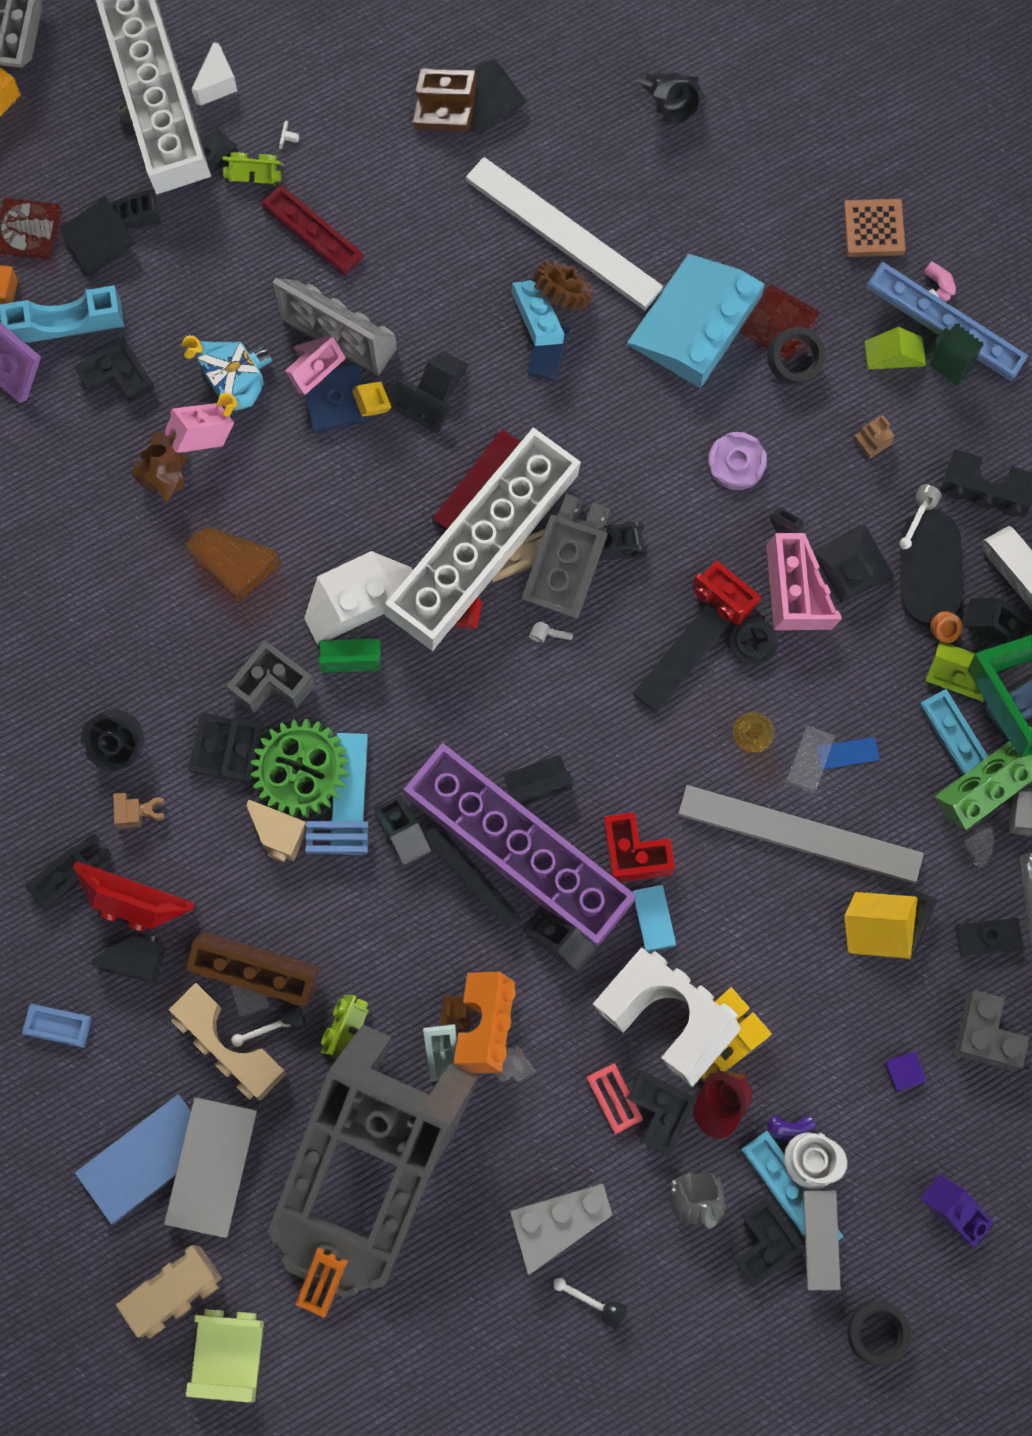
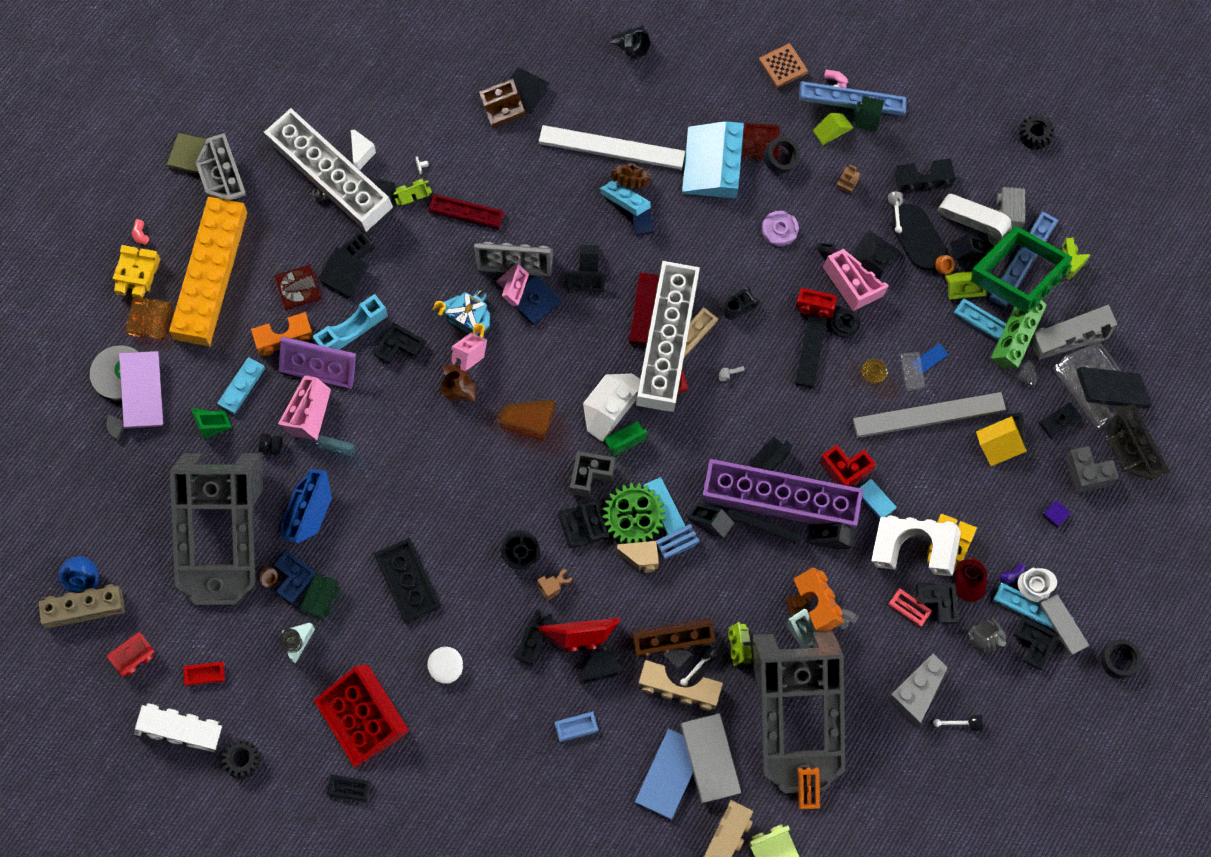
camera: 30 degrees left, 5 degrees down
(371, 399) = (556, 290): yellow tile -> none
(567, 558) = (719, 326): dark grey tile -> none
(956, 1210) = (1125, 572): dark purple slope -> none

